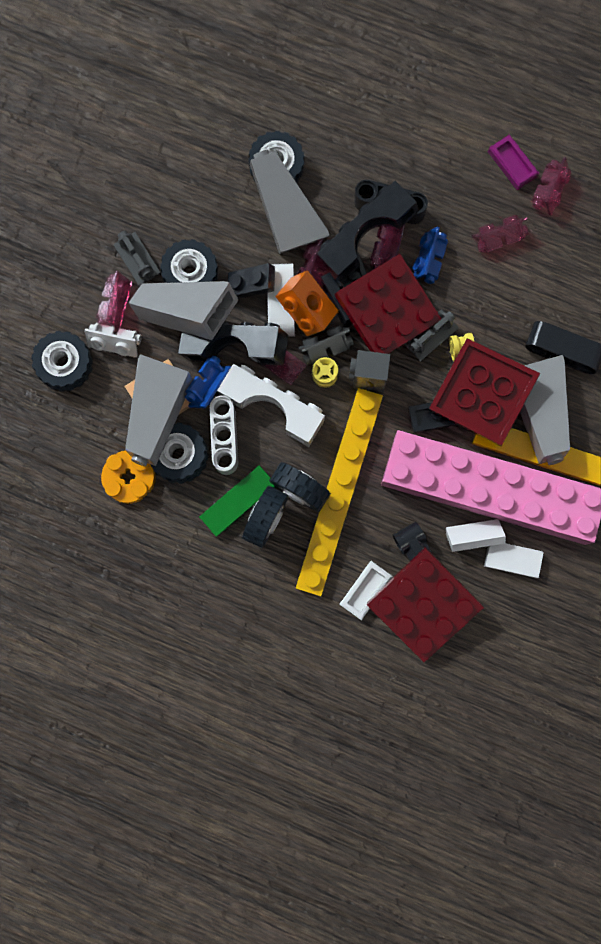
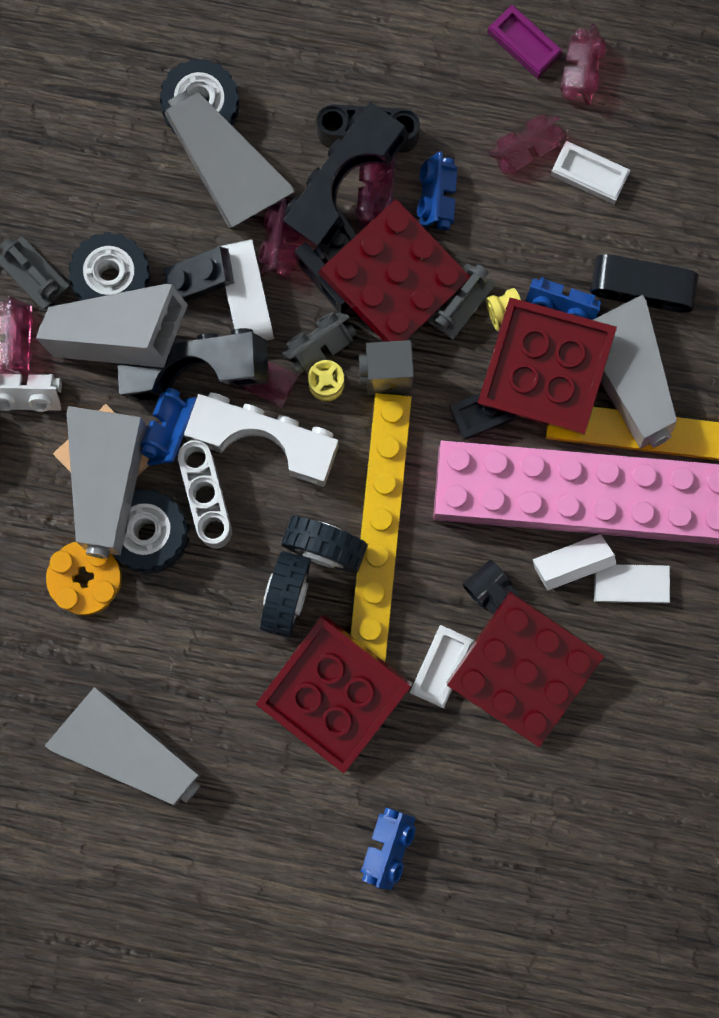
camera: 20 degrees left, 0 degrees up
(130, 602) = (119, 746): none -> light grey slope
(236, 501) = (241, 581): green tile -> none
(285, 594) = (333, 694): none -> dark red plate
(296, 724) = (385, 865): none -> blue hinge
(307, 303) = (283, 291): orange brick -> none
(497, 343) = (549, 295): none -> blue hinge
(541, 262) = (590, 172): none -> white tile

